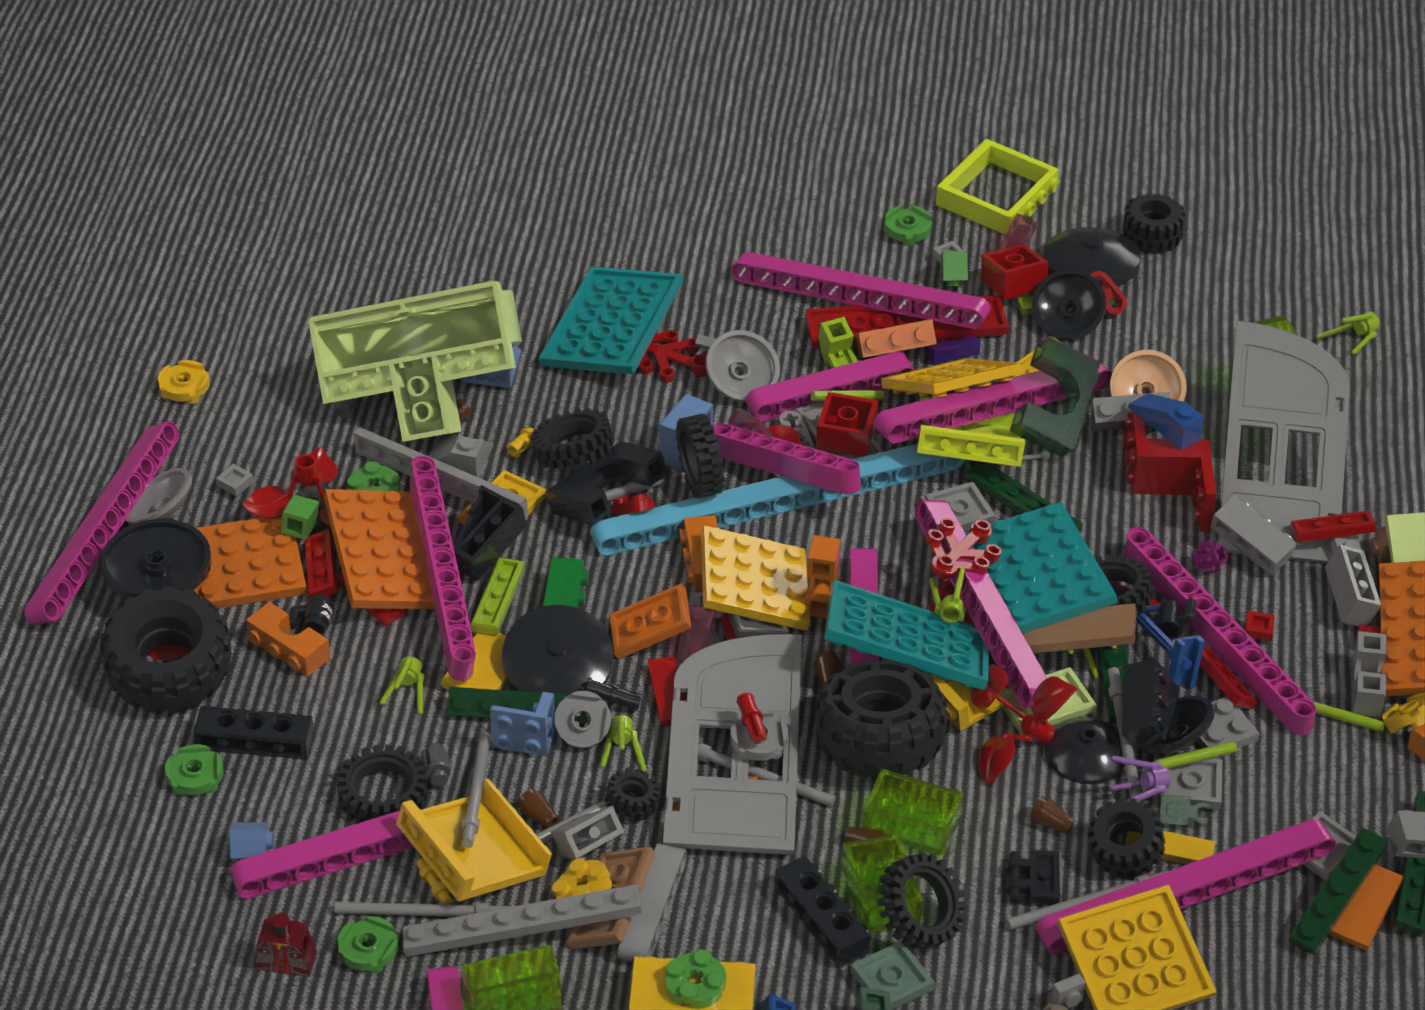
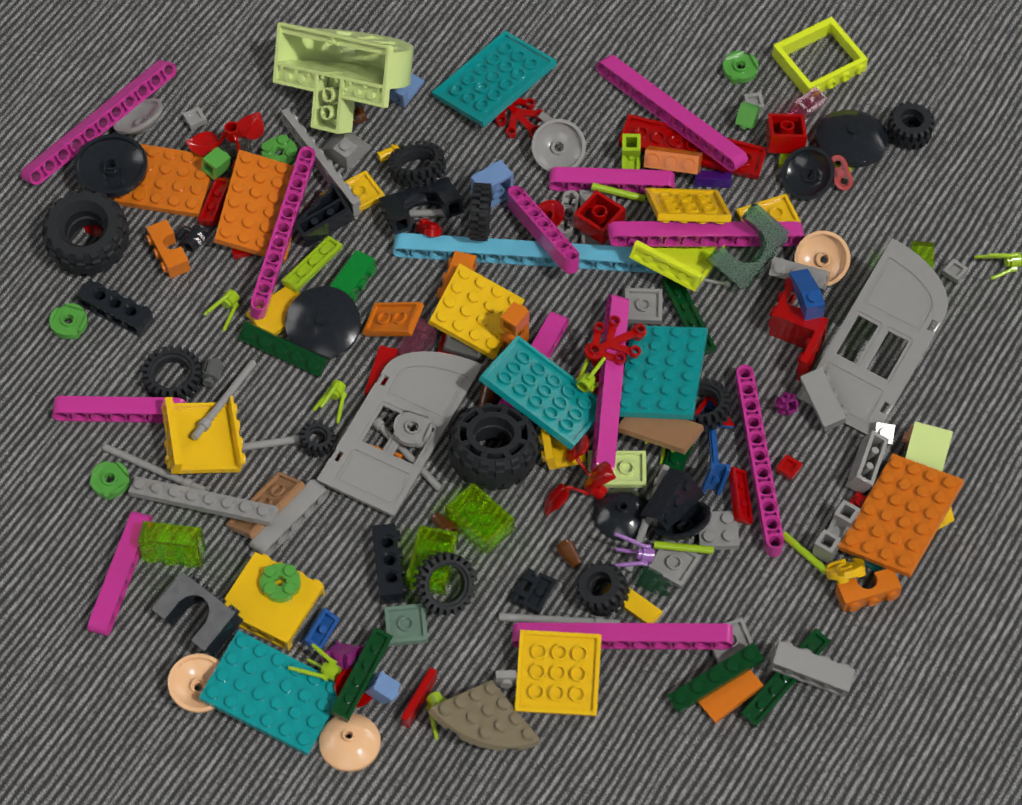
camera: 25 degrees right, 15 degrees up
(172, 384) = (204, 38): yellow plate -> none
(250, 839) = (74, 383): medium blue brick -> none
(285, 947) = (58, 465): dark red torso -> none
(524, 729) = (278, 373): medium blue bracket -> none
(536, 807) = (256, 425): reddish brown cone -> none
(573, 706) = (303, 378): light grey plate -> none
(581, 872) = (256, 481): yellow plate -> none
(587, 832) = (273, 455): light grey slope -> none
(614, 694) = (343, 362): black pin -> none
(747, 421) = (538, 193): clear pink slope -> none
(751, 717) = (410, 416): red axle -> none
(1170, 617) = (732, 440): black piece -> none
(1333, 526) = (880, 413): red tile -> none

